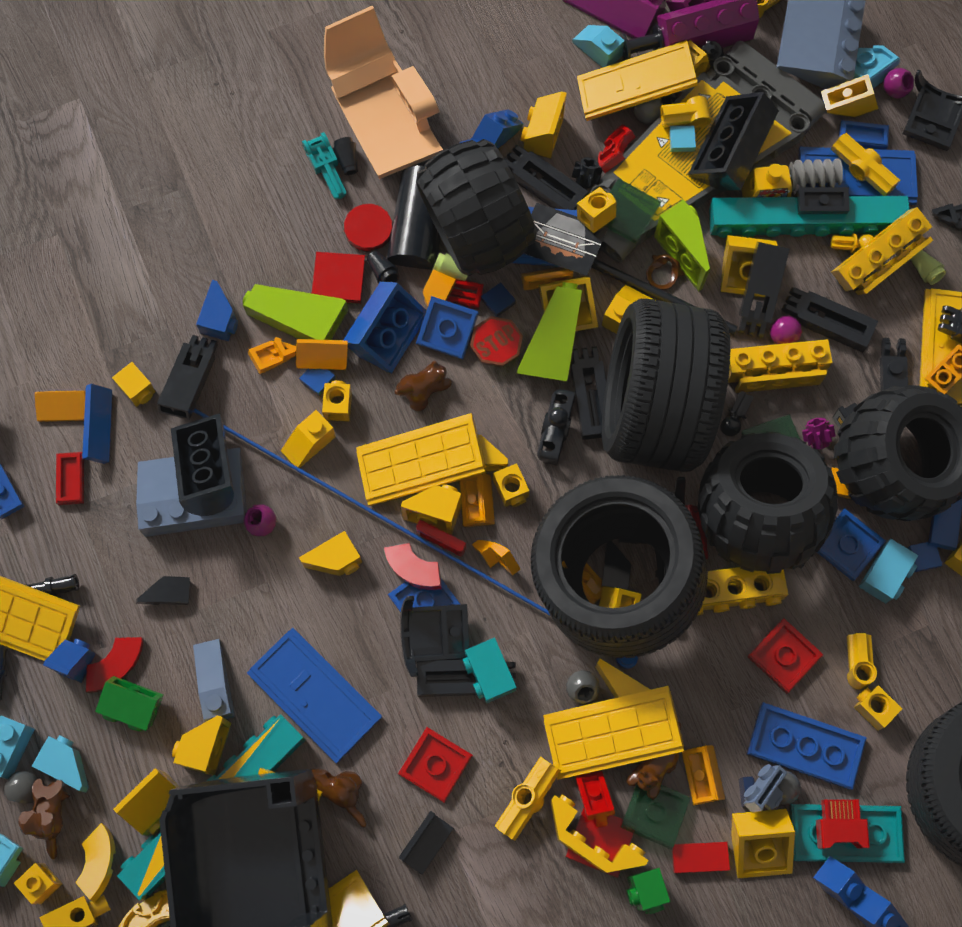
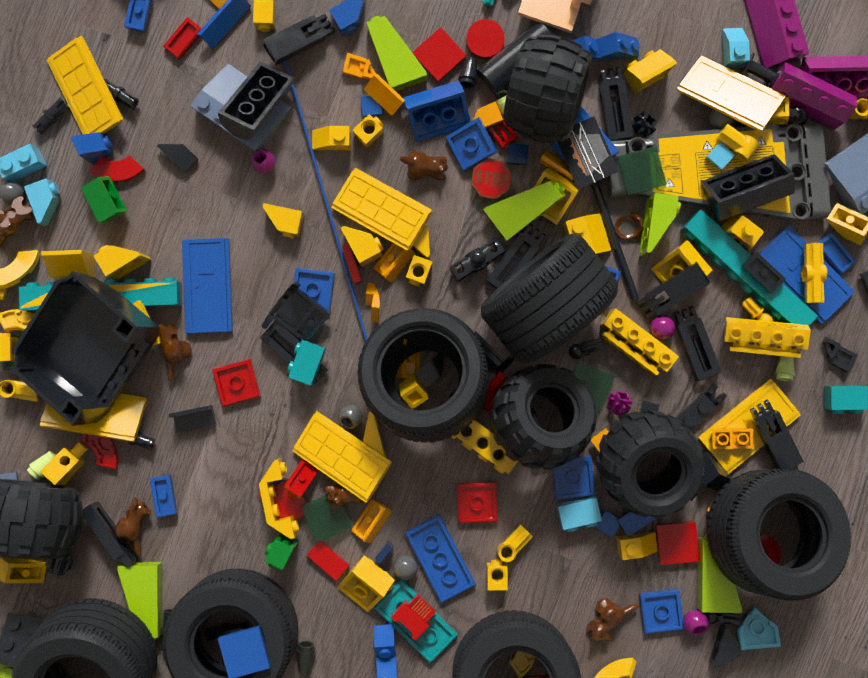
camera: 45 degrees right, 15 degrees up
(213, 681) = (159, 228): sand blue slope -> none
(413, 569) = (320, 266): tile -> none
(536, 783) = (277, 444): yellow piece -> none
(596, 209) = (614, 159): yellow brick -> none
(615, 148) = (679, 122): red tile -> none
(765, 789) = (390, 562): sand blue piece -> none
(816, 172) = (776, 251): light grey piece -> none

